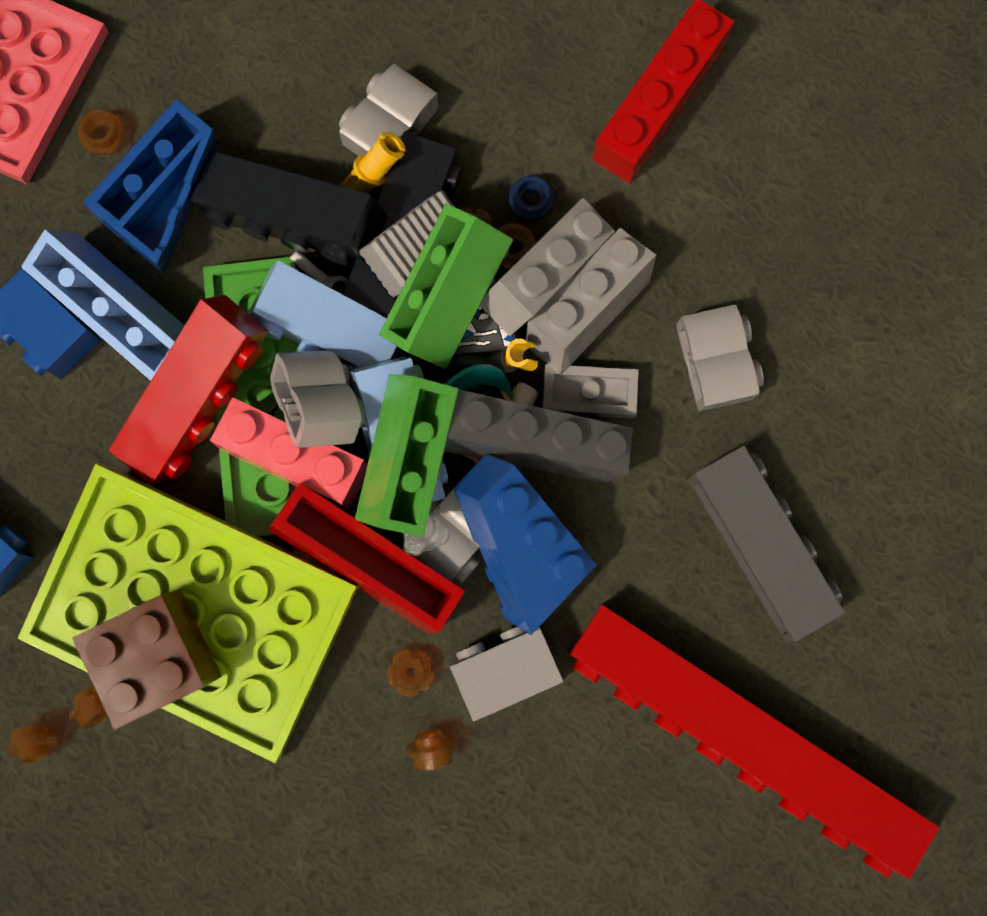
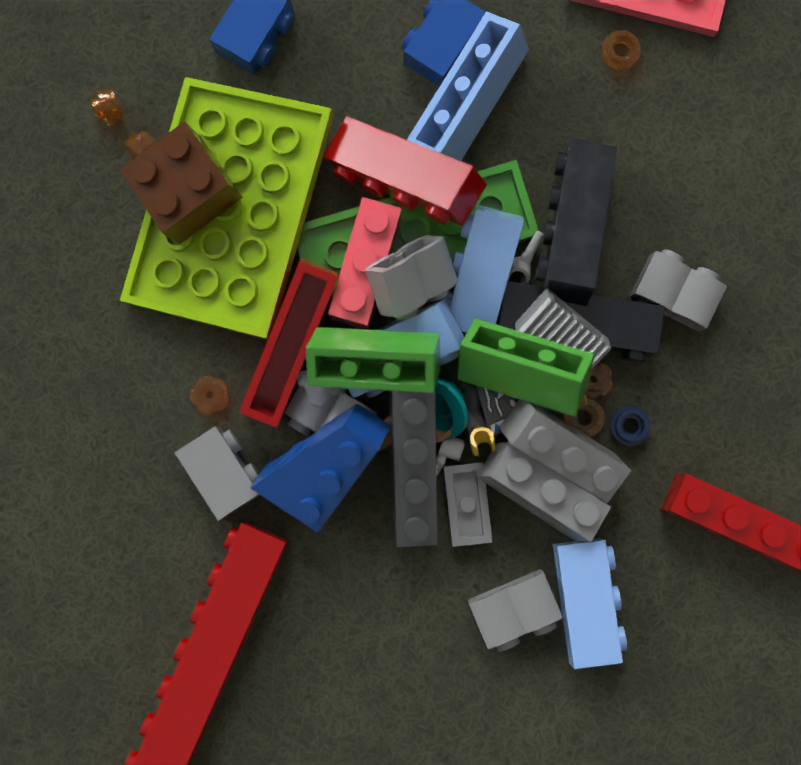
camera: 80 degrees right, 5 degrees up
(152, 186) = (578, 105): blue wedge -> none
(372, 168) = (627, 285): yellow axle -> none
(431, 750) = (149, 422): clear orange plate -> none
(723, 275) = (589, 603): none -> light blue brick
(767, 545) = (361, 673): dark grey brick -> none

